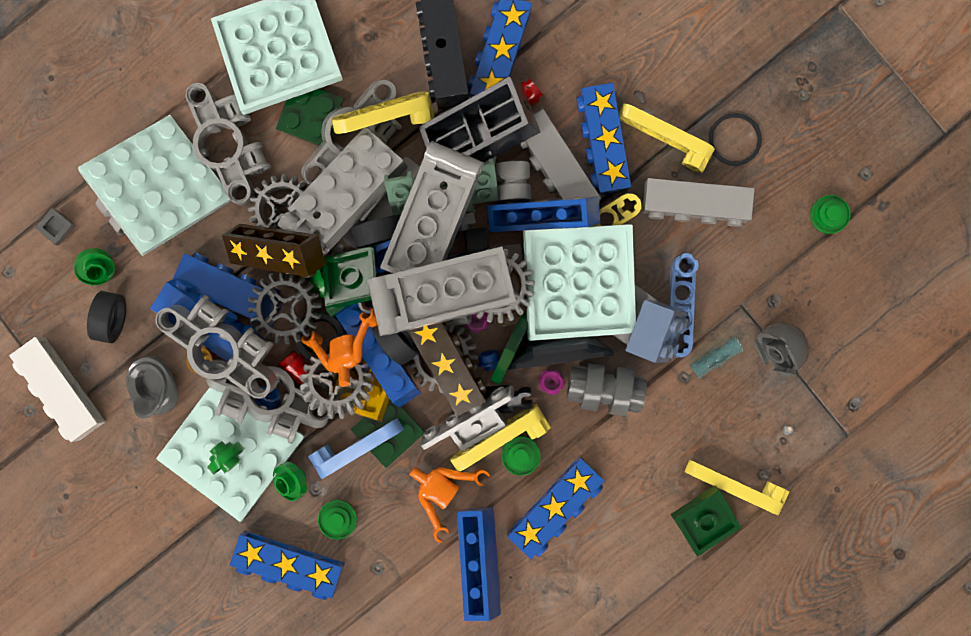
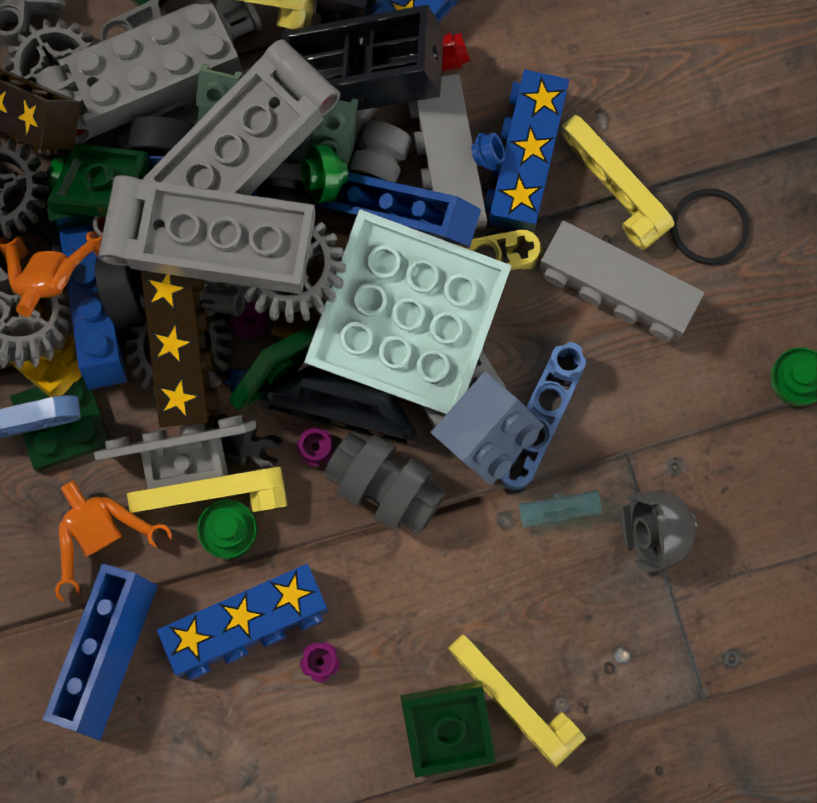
camera: 20 degrees right, 10 degrees down
(488, 213) = (323, 173): none -> green plate
(582, 152) = (488, 150): none -> blue plate
(614, 517) = (312, 653): none -> magenta plate

